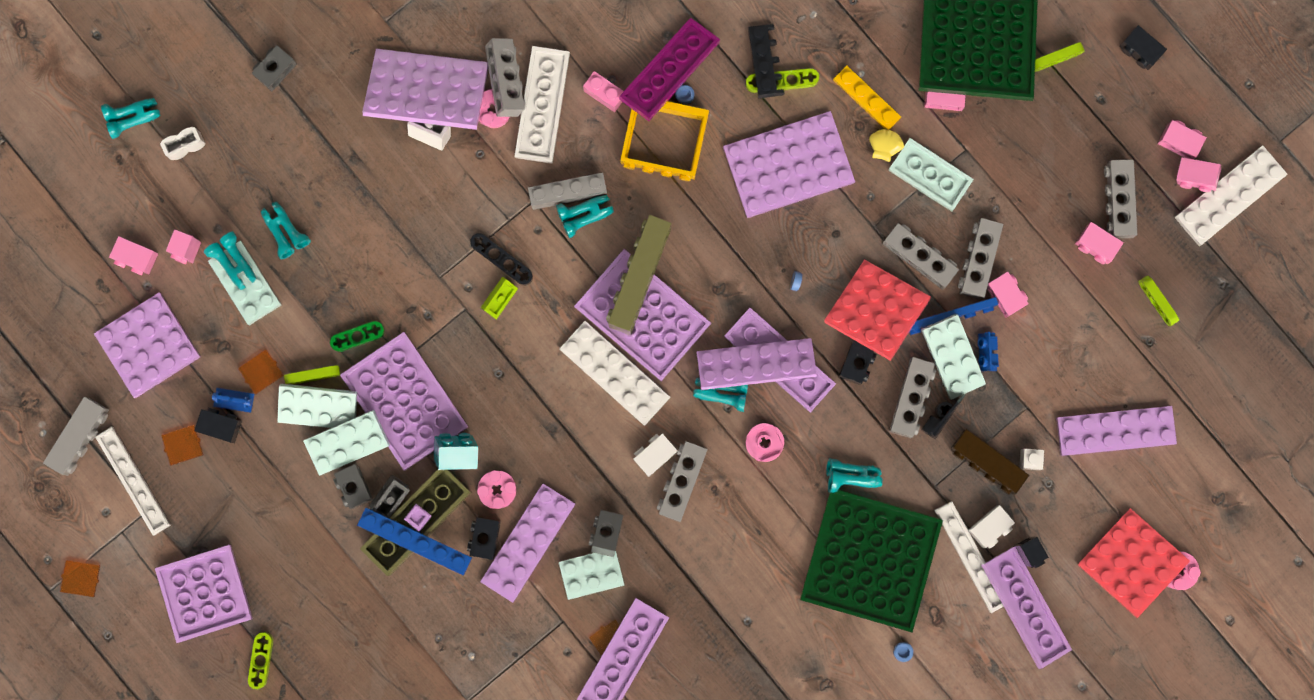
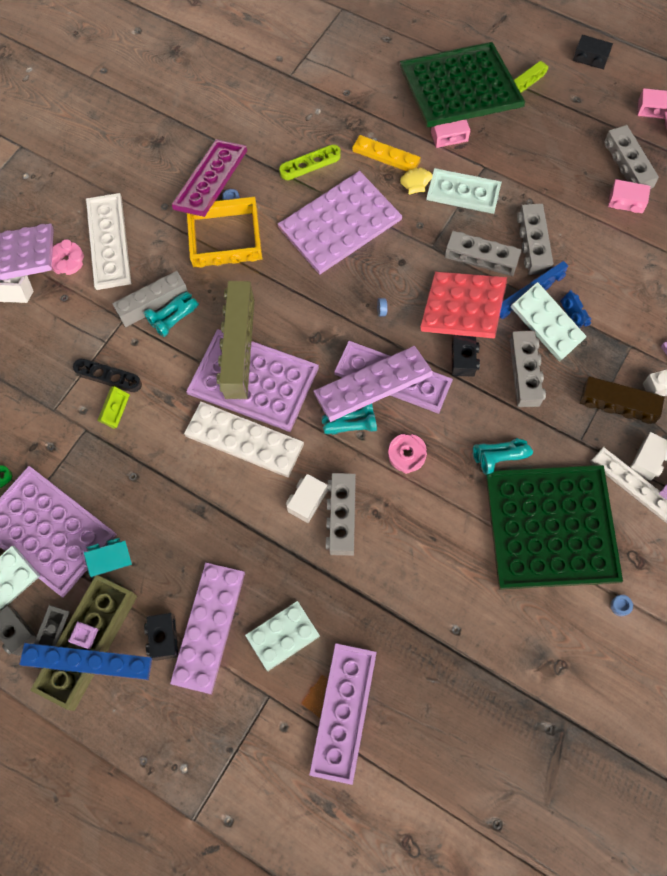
camera: 15 degrees left, 15 degrees down
(486, 492) = (165, 595): bright pink plate -> none
(505, 105) = (67, 226): light grey brick -> none
(603, 91) = (159, 213): bright pink brick -> none
(606, 544) = (284, 599): dark grey brick -> none
(764, 61) = (289, 152): black hinge -> none
(933, 425) = (559, 379): black panel -> none
(1008, 295) = (576, 258): bright pink brick -> none

